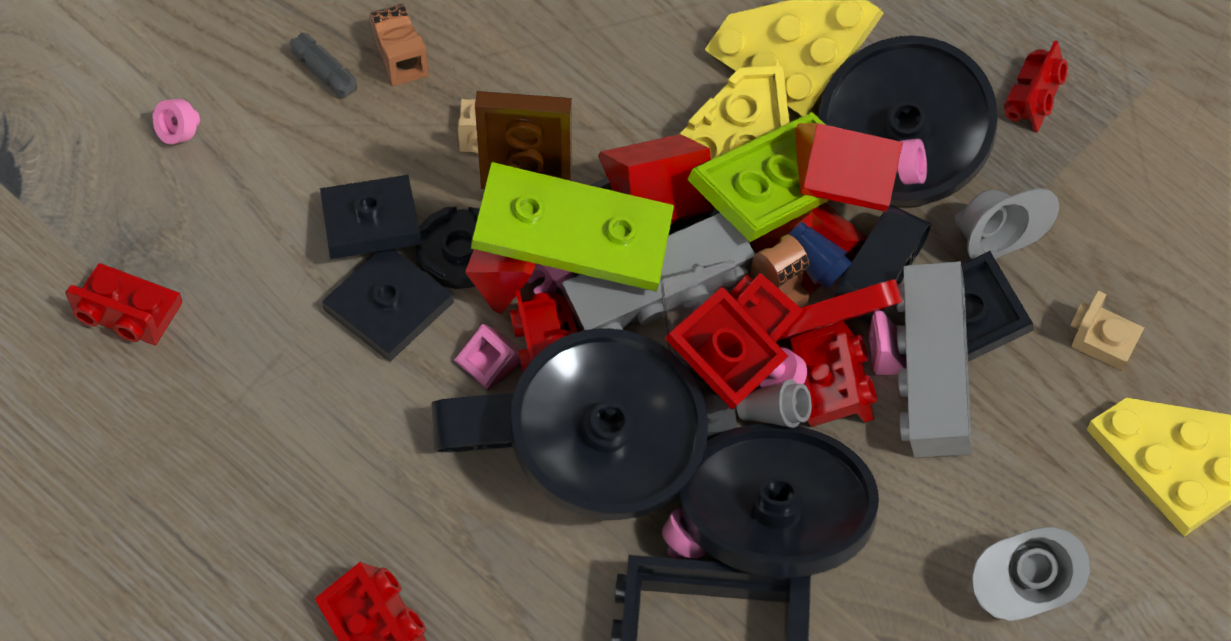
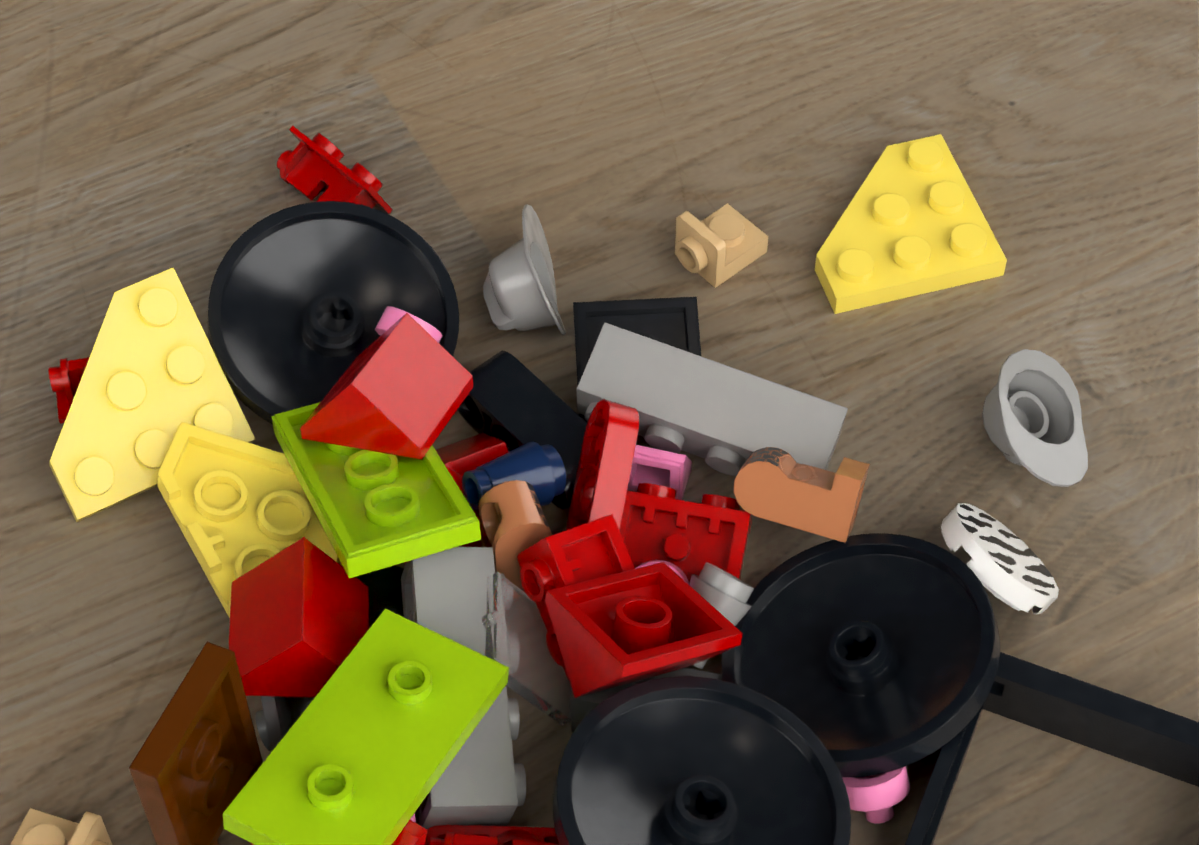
camera: 70 degrees left, 5 degrees down
(886, 429) = (800, 494): none -> nougat leg
(894, 571) = (1000, 559): none -> white tile

